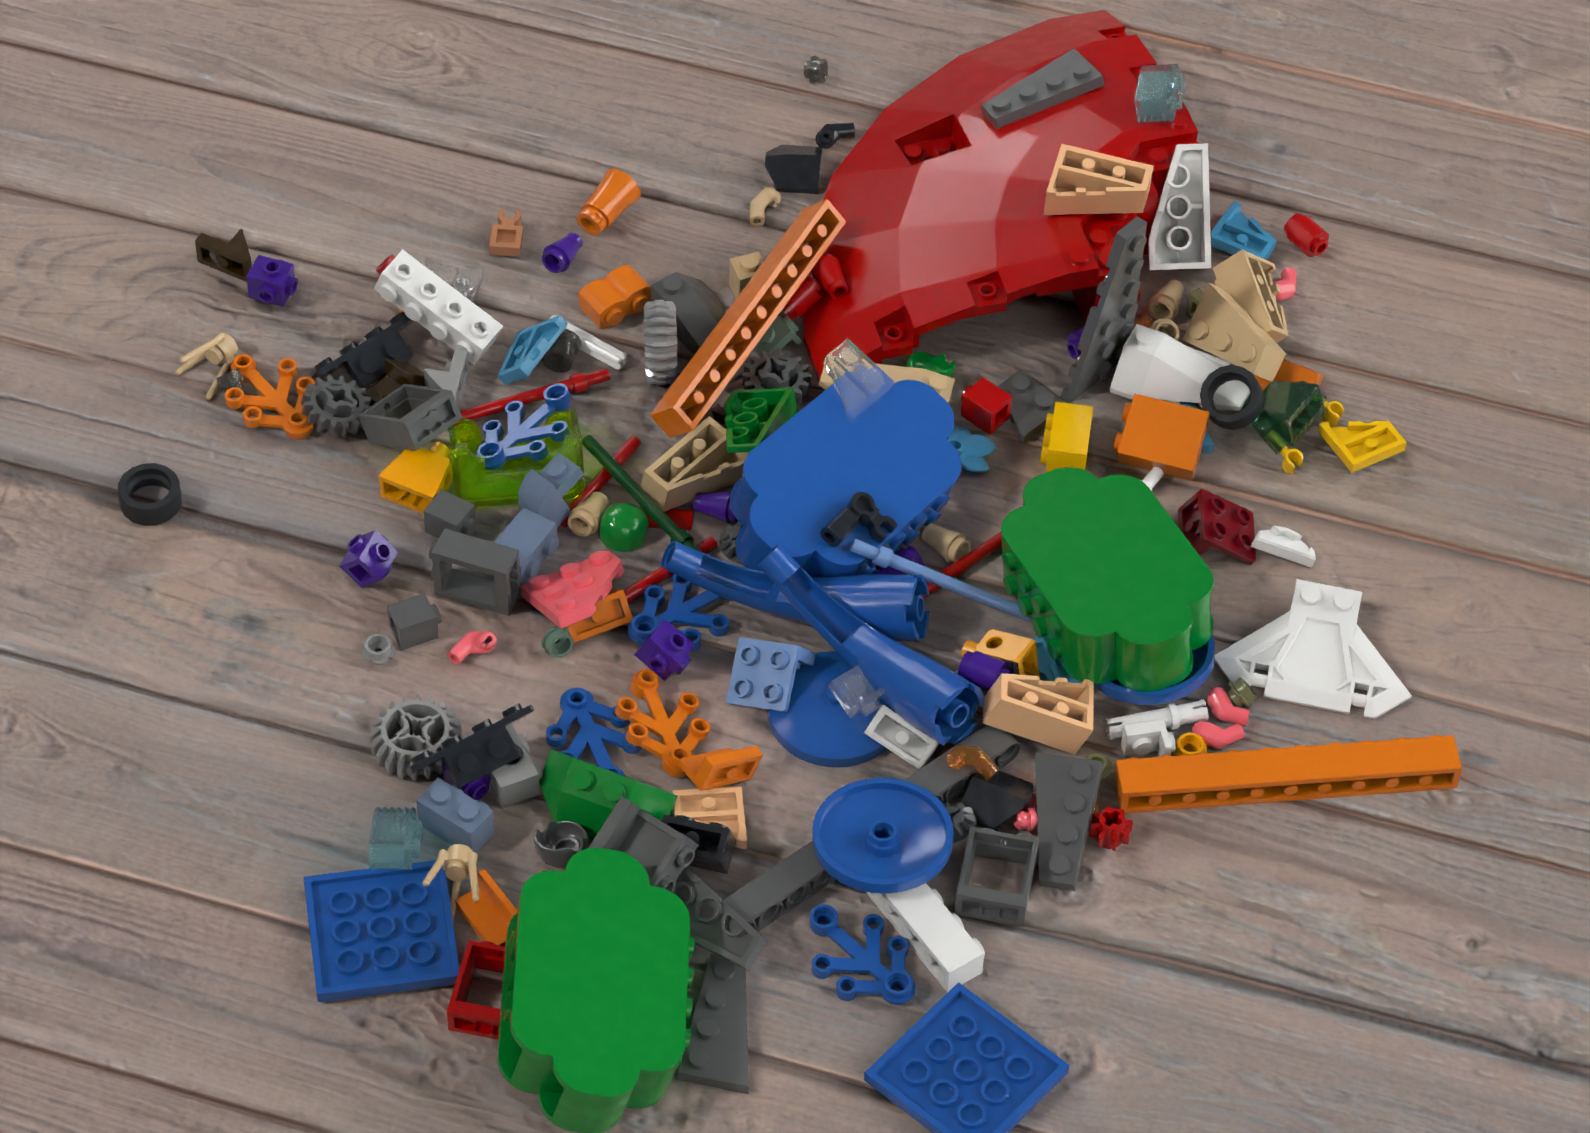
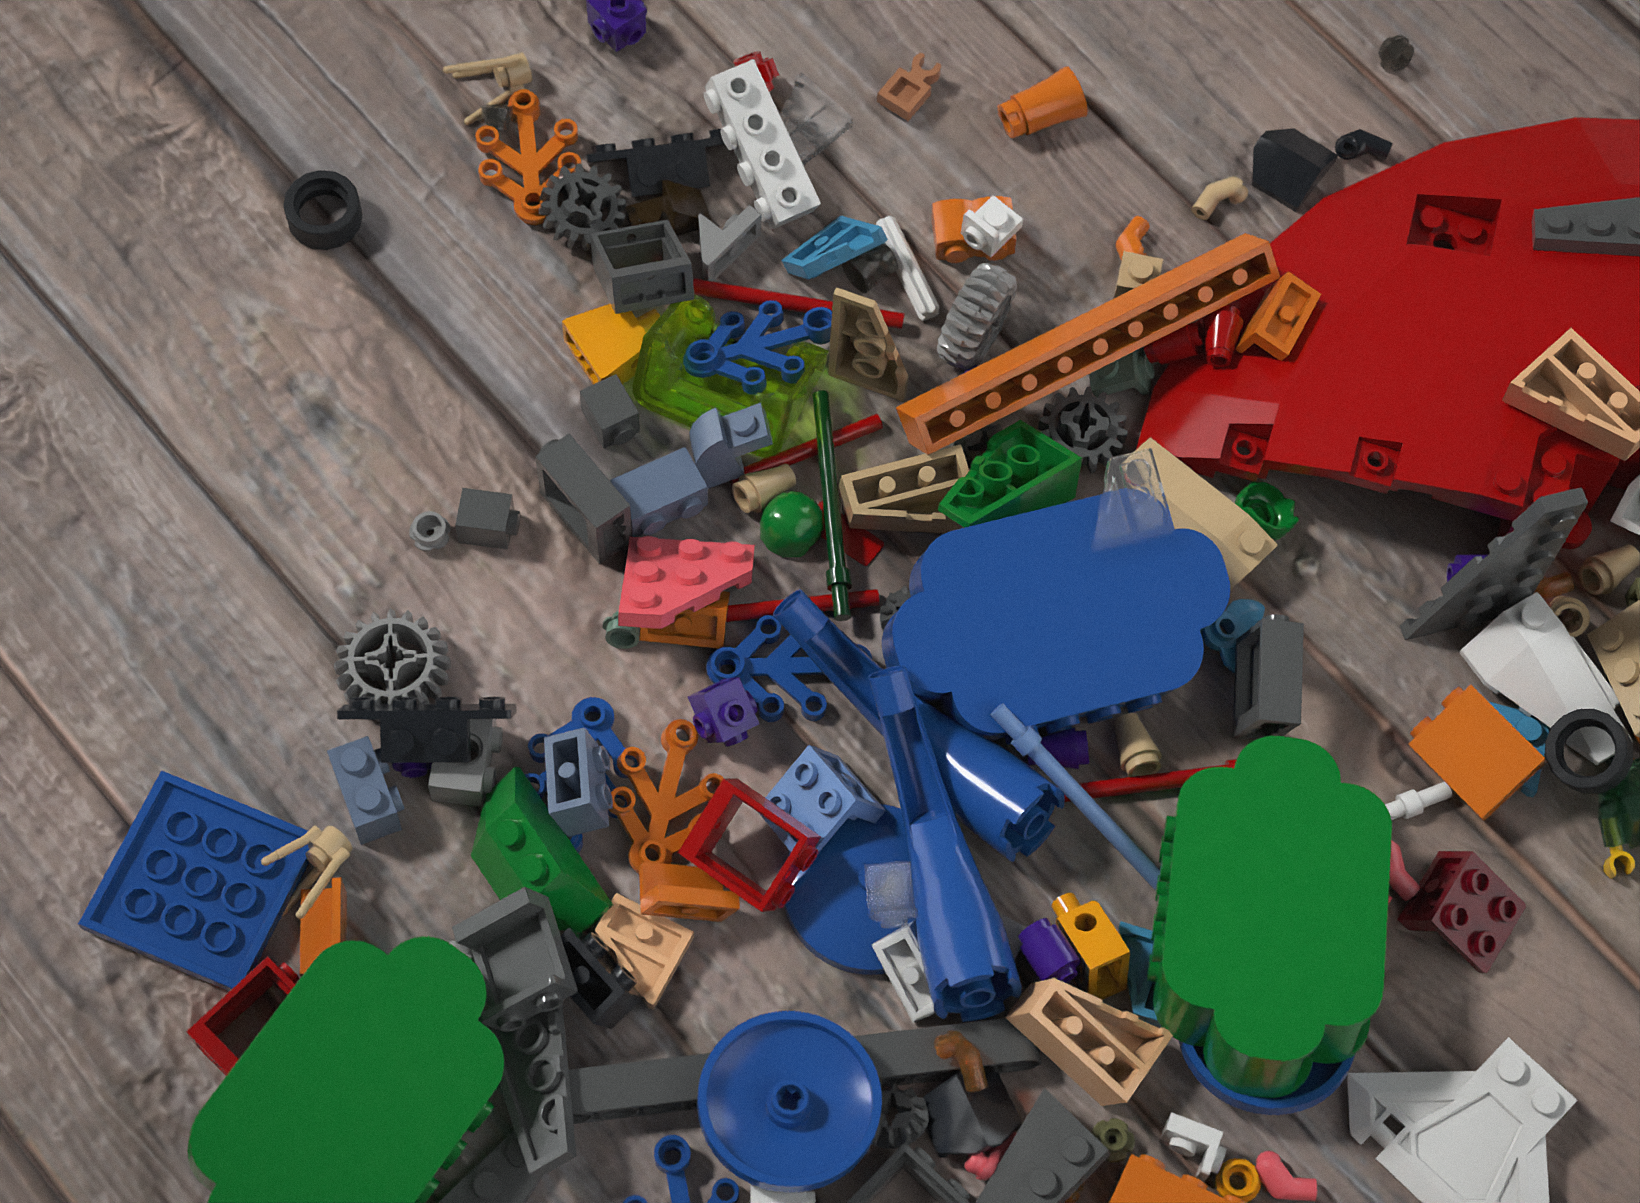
camera: 30 degrees right, 15 degrees up
(368, 558) = (489, 415): dark purple brick -> none
(394, 838) = (279, 781): clear light blue brick -> none
(472, 643) = (533, 579): coral arm -> none
(560, 842) = (453, 888): dark grey hair -> none
(561, 253) = (952, 142): dark purple cone -> none
(601, 731) = (577, 782): none -> sand blue brick
(602, 387) = (863, 347): none -> tan wedge
(630, 284) = (990, 226): none -> white bracket
(696, 310) = (1050, 288): dark grey wedge -> none
(710, 709) = (712, 825): none -> red window
(715, 505) = (904, 549): dark purple cone -> none
(722, 255) = (1131, 237): none -> orange arm
(858, 510) = (1032, 669): black bar -> none
(861, 244) = (1280, 317): none -> orange panel
(986, 405) = (1297, 592): red brick -> none
(1002, 478) = (1268, 678): none -> dark grey window
(1029, 404) = (1353, 617): dark grey wing -> none
(1066, 436) = (1356, 698): yellow wedge -> none
(1172, 714) = (1241, 1124): white pin -> none
(1223, 708) = (1313, 1149): coral arm -> none
(1241, 693) = (1348, 1143): olive plate -> none
(1285, 544) = (1534, 973): white tile -> none

